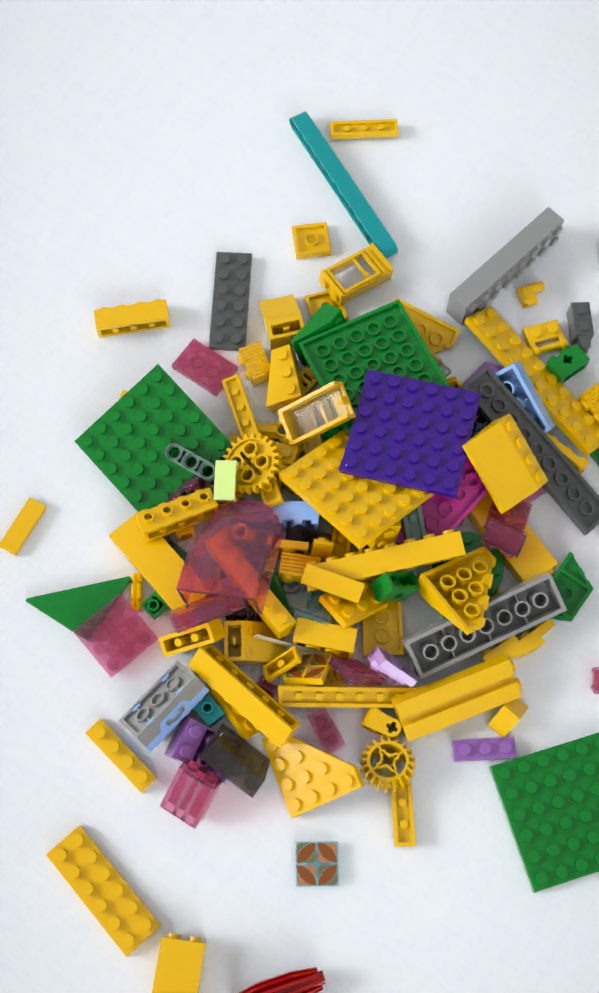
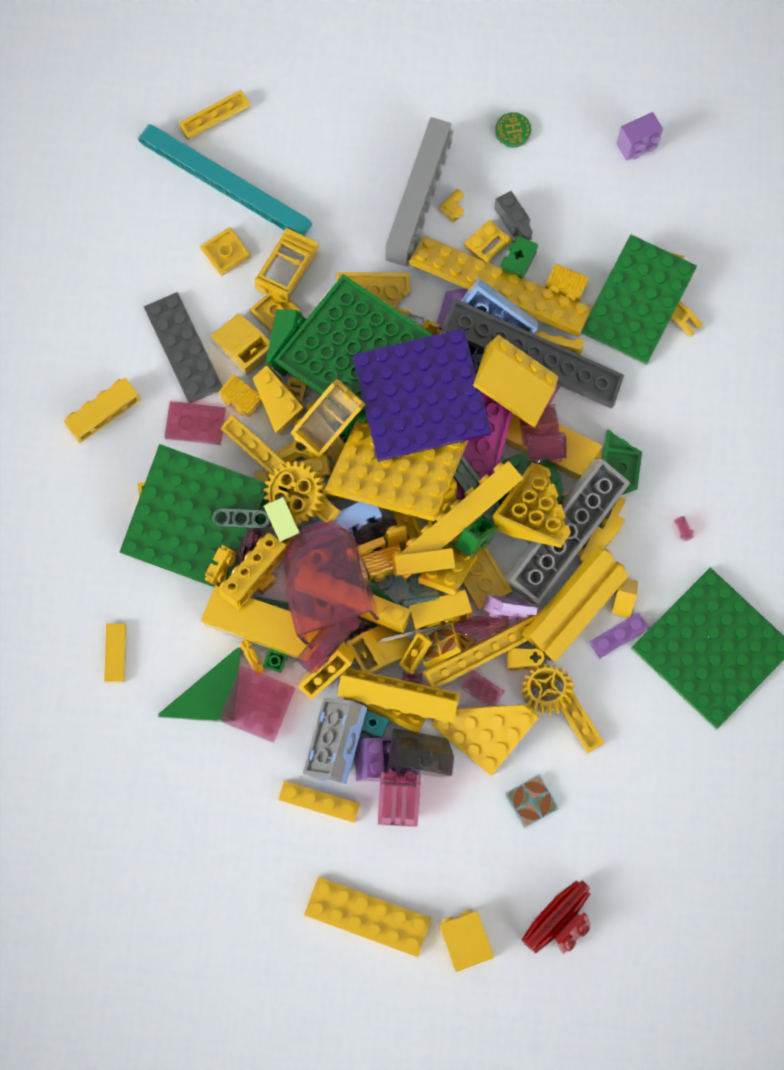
camera: 30 degrees left, 5 degrees up
(160, 492) = (225, 559): none -> yellow hinge

